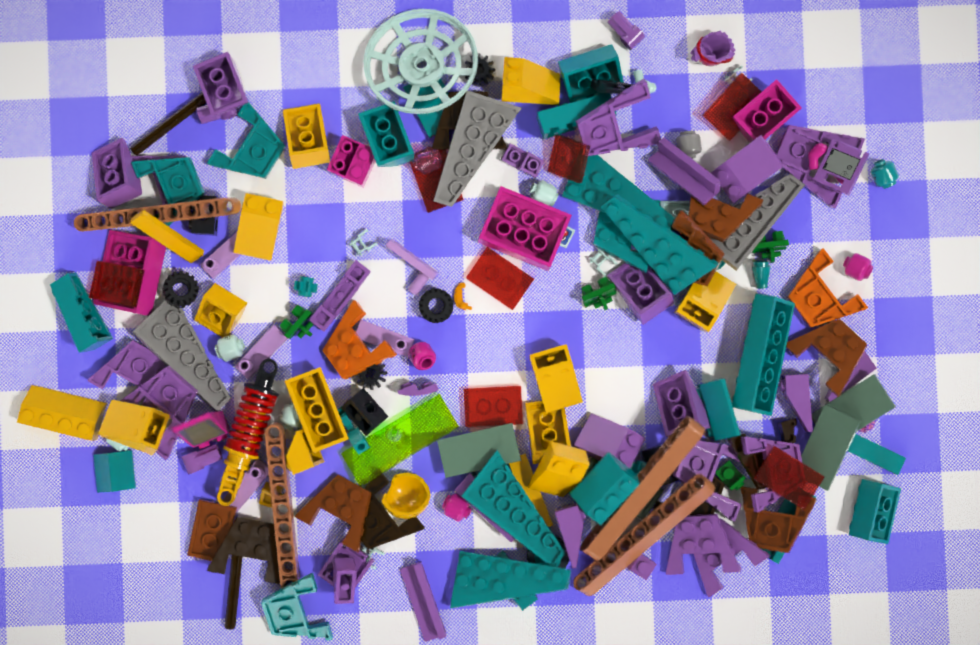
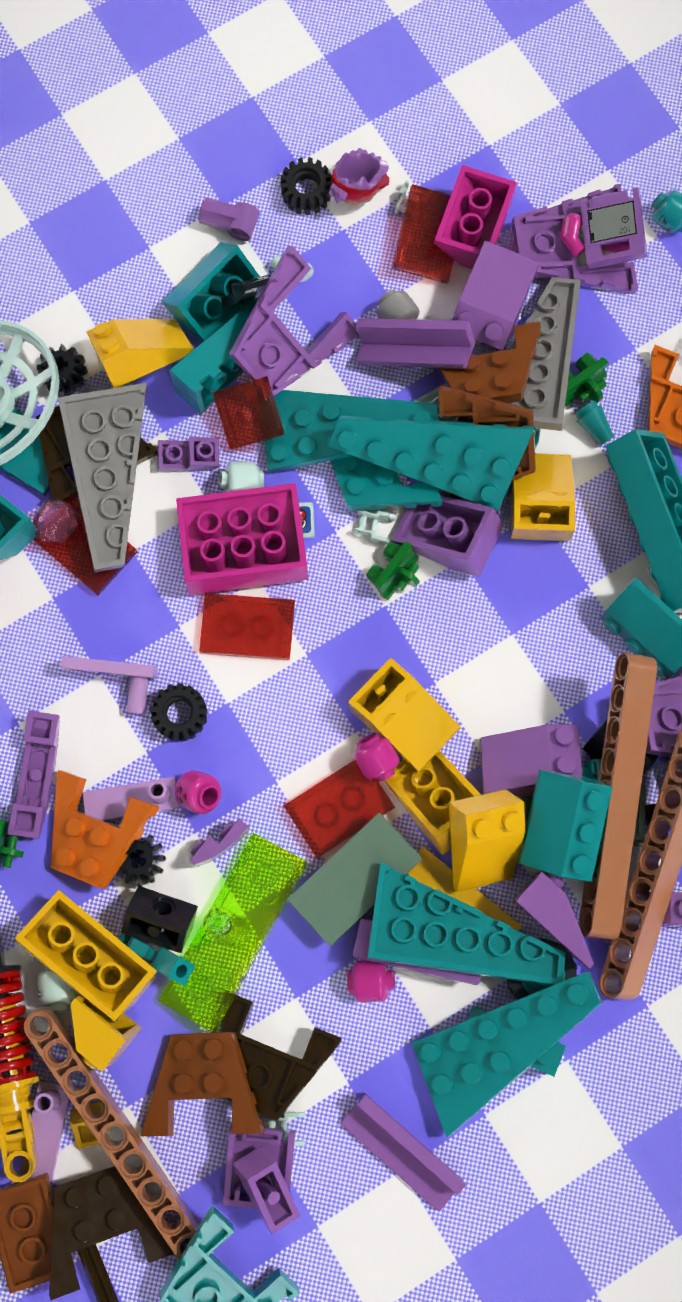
camera: 30 degrees left, 10 degrees down
(353, 243) = (14, 693): light aqua piece -> none
(406, 496) = (289, 1006): yellow cylinder -> none
(458, 297) = (205, 685): light orange piece -> none
(527, 392) = (376, 757): none -> dark pink head
(677, 400) = (589, 649): medium lavender slope -> none
(681, 24) = (303, 171): none -> black tyre

